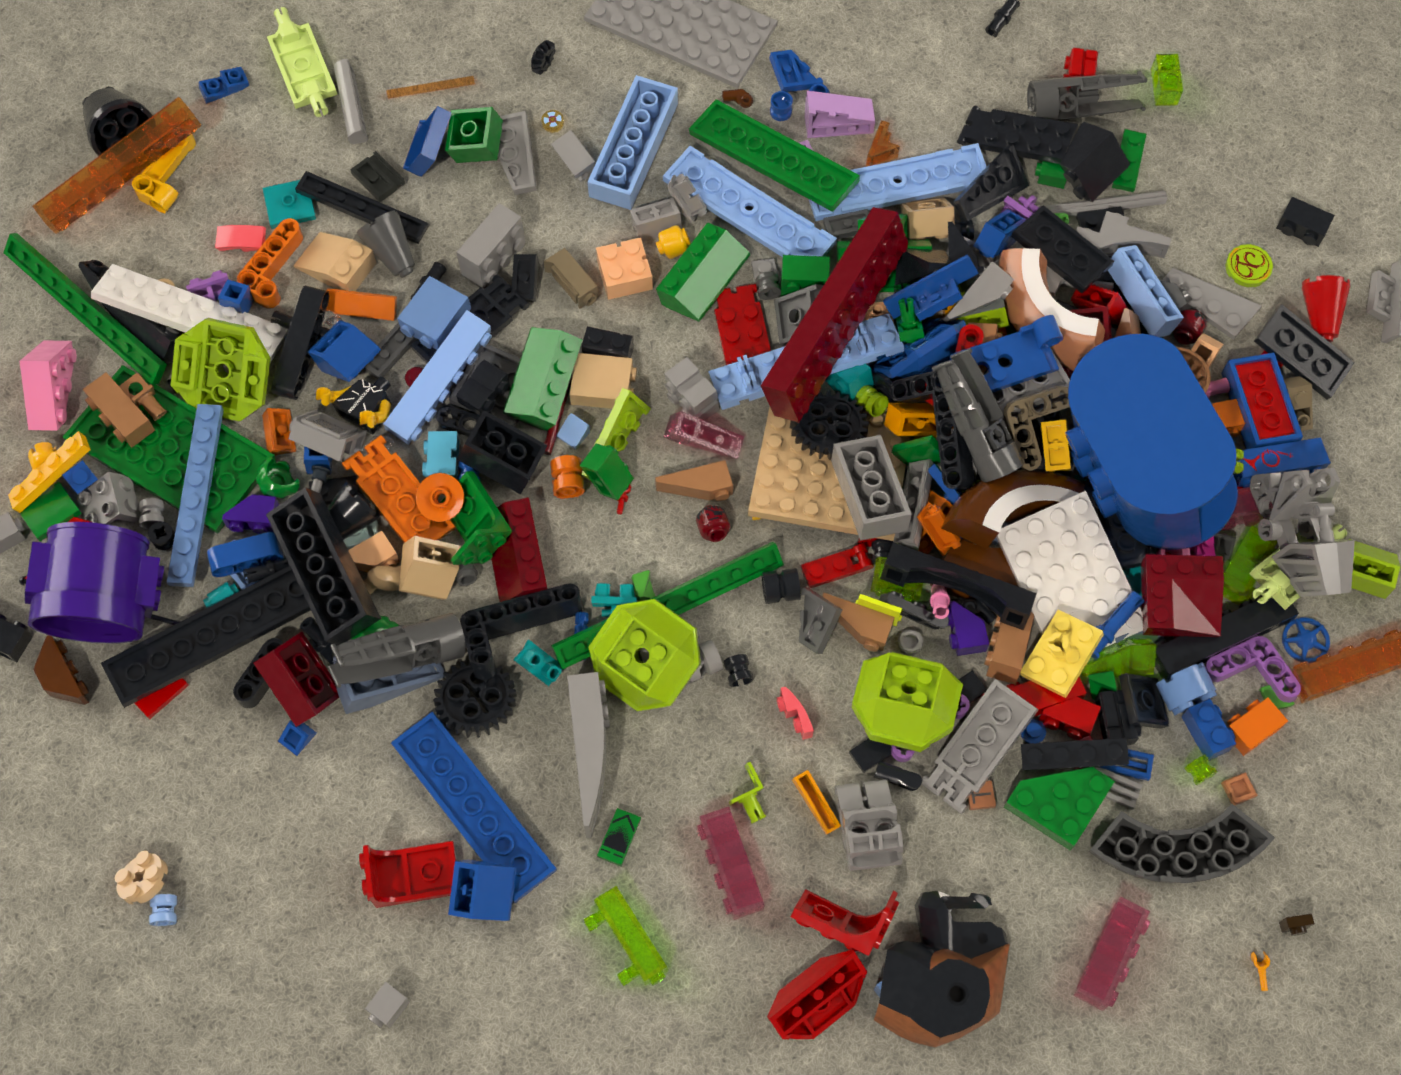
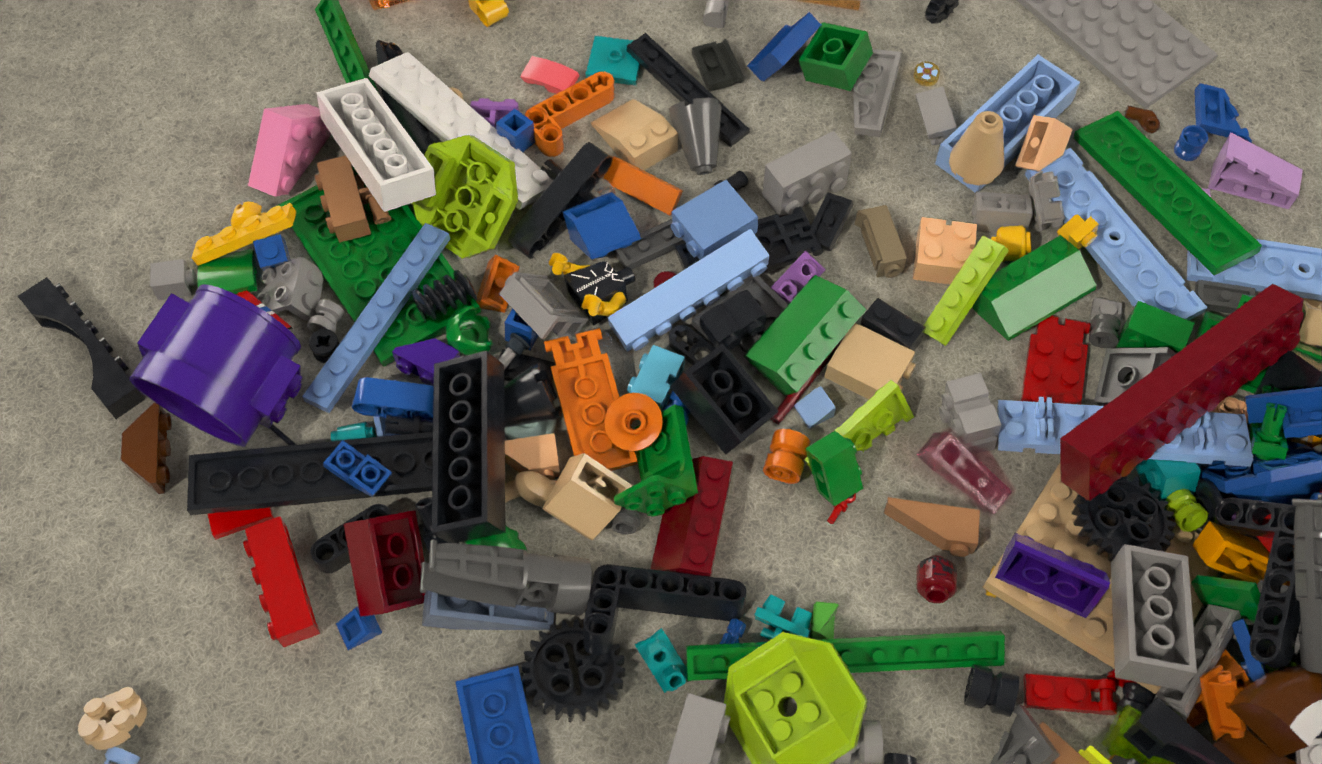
camera: 25 degrees right, 5 degrees down
(128, 354) = (376, 144): none -> white brick
(221, 727) = (281, 582): none -> red brick
(241, 619) = (356, 469): none -> blue slope
(242, 457) = (443, 295): none -> black piece
(518, 333) = (797, 276): none -> medium lavender hips
(620, 178) = (980, 150): none -> tan cone
(651, 295) = (964, 290): none -> lime plate
(667, 151) = (1043, 143): none -> light nougat slope
(720, 214) = (1079, 232): none -> yellow bracket
(791, 486) = (1052, 575): none -> dark purple slope
(881, 148) = (1296, 228): clear orange slope -> none

